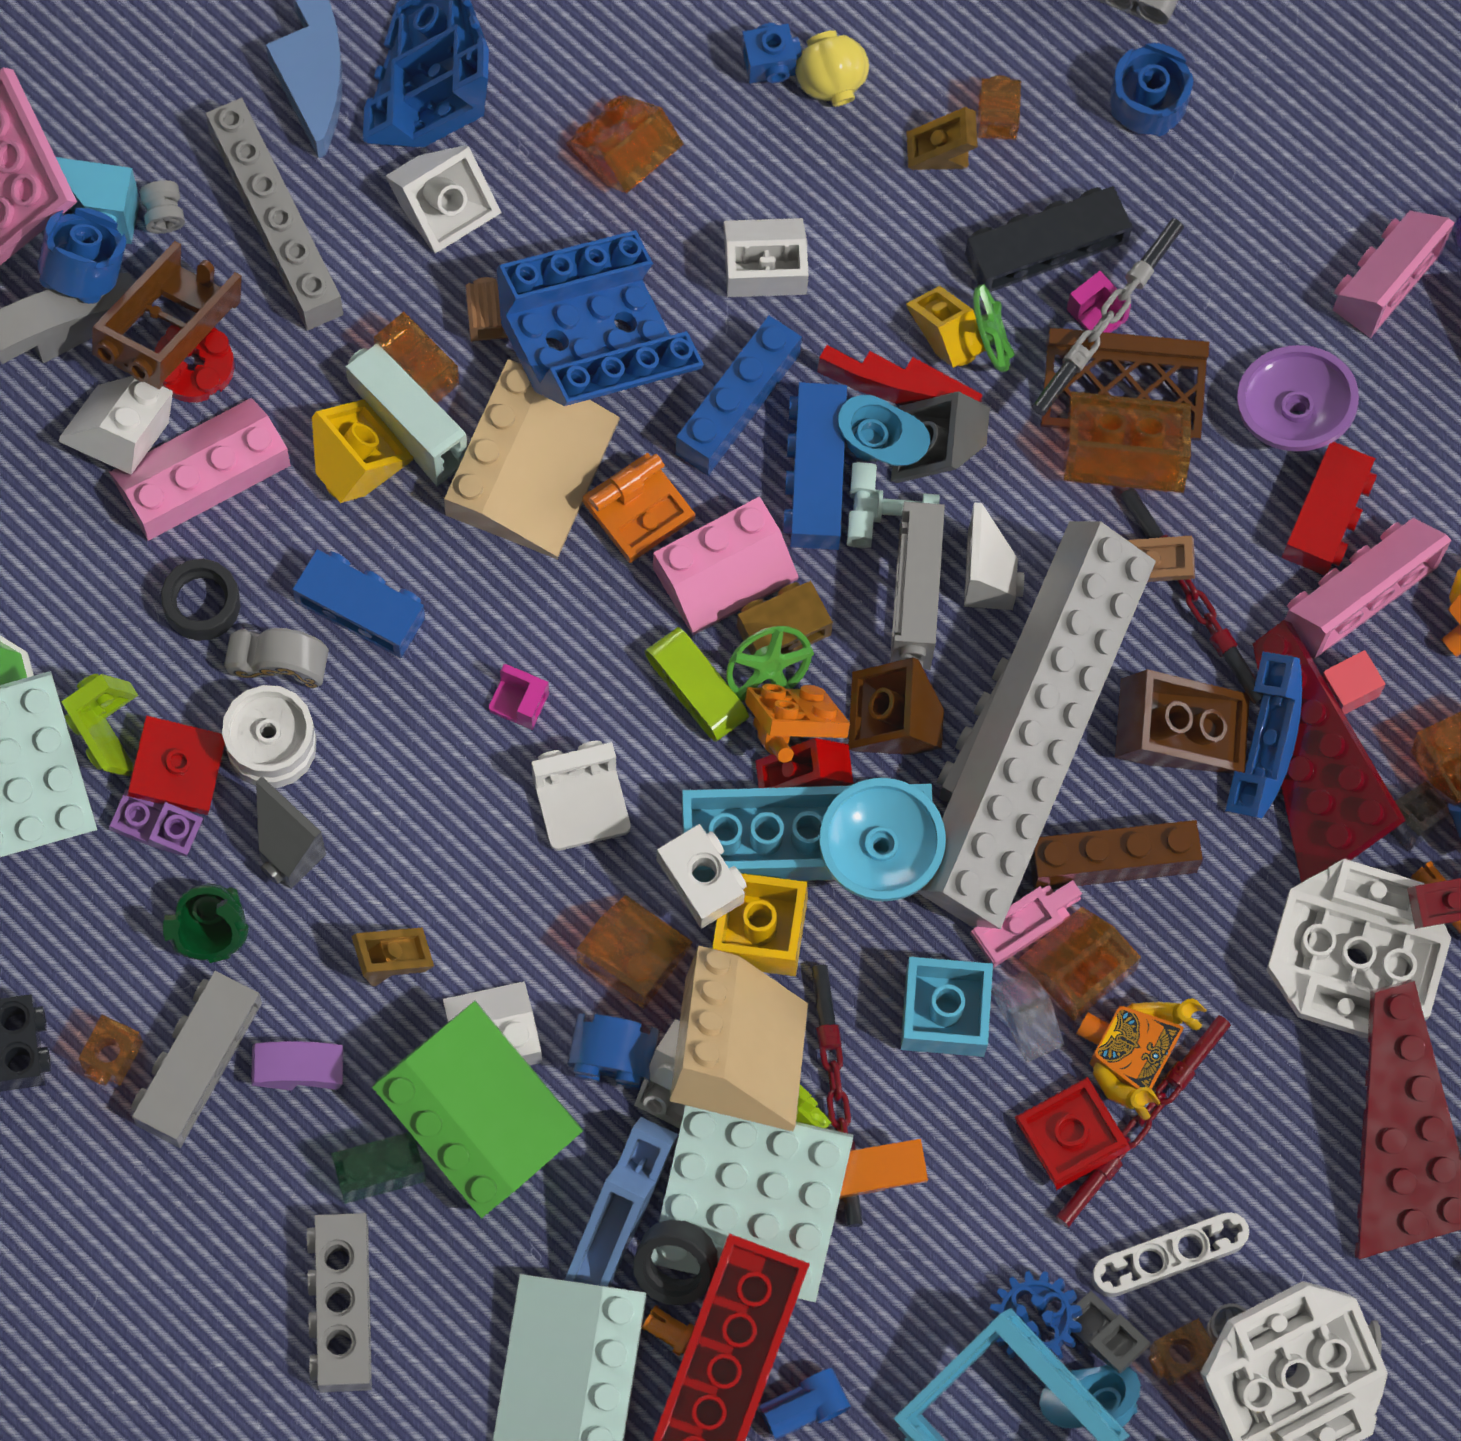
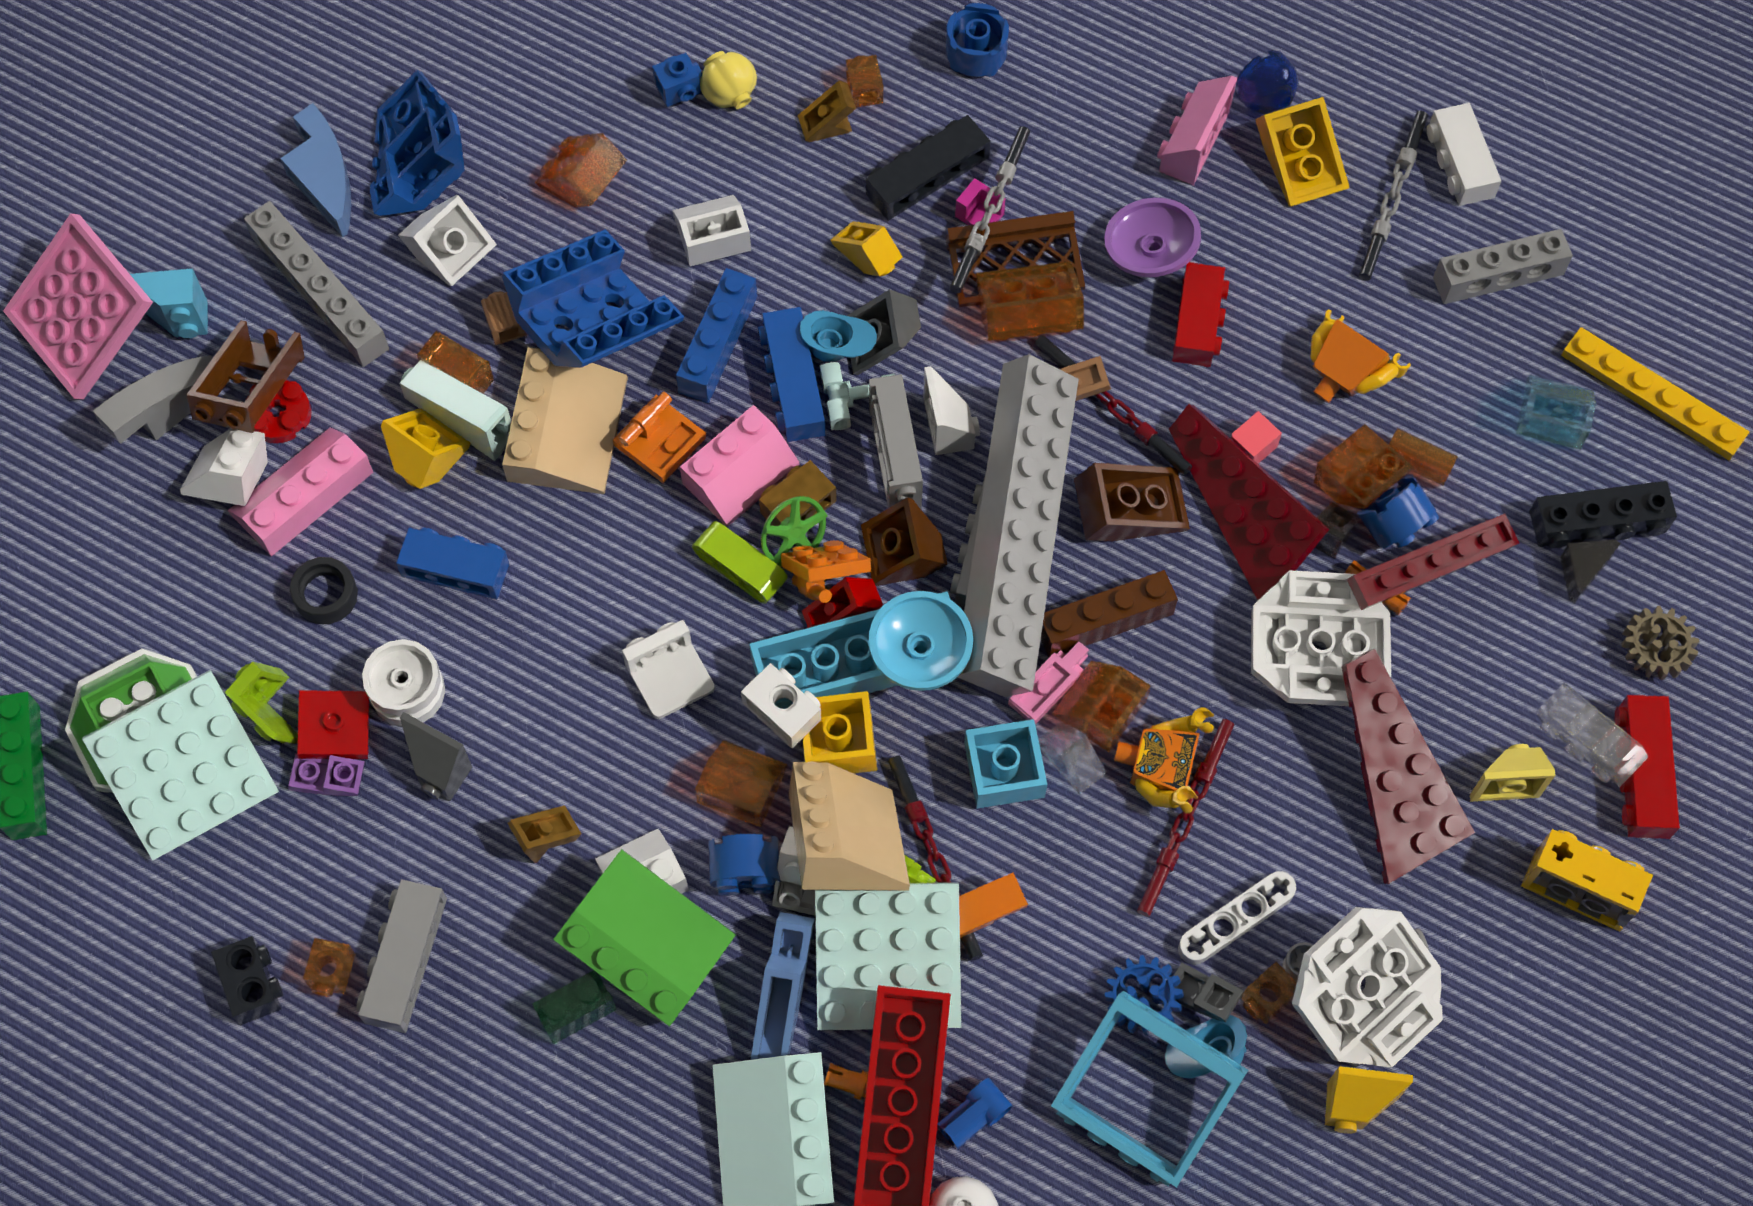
camera: 10 degrees left, 5 degrees down
(81, 254) = (165, 343): blue brick -> none
(162, 206) = (224, 295): light grey wheel -> none
(207, 923) = (386, 844): dark green helmet -> none
(276, 654) = (394, 616): light grey animal -> none
(297, 1063) = (487, 938): medium lavender slope -> none
(352, 1369) = (592, 1178): light grey brick -> none
(519, 696) = (600, 605): dark pink panel -> none
(663, 1287) = (834, 1046): black tyre -> none
(887, 380) = (829, 295): red slope -> none
(992, 329) = (902, 240): bright green wheel -> none
(1072, 1133) = (1132, 840): red tile -> none
(1274, 736) = (1205, 493): blue slope -> none
(1366, 585) = (1245, 362): bright pink slope -> none

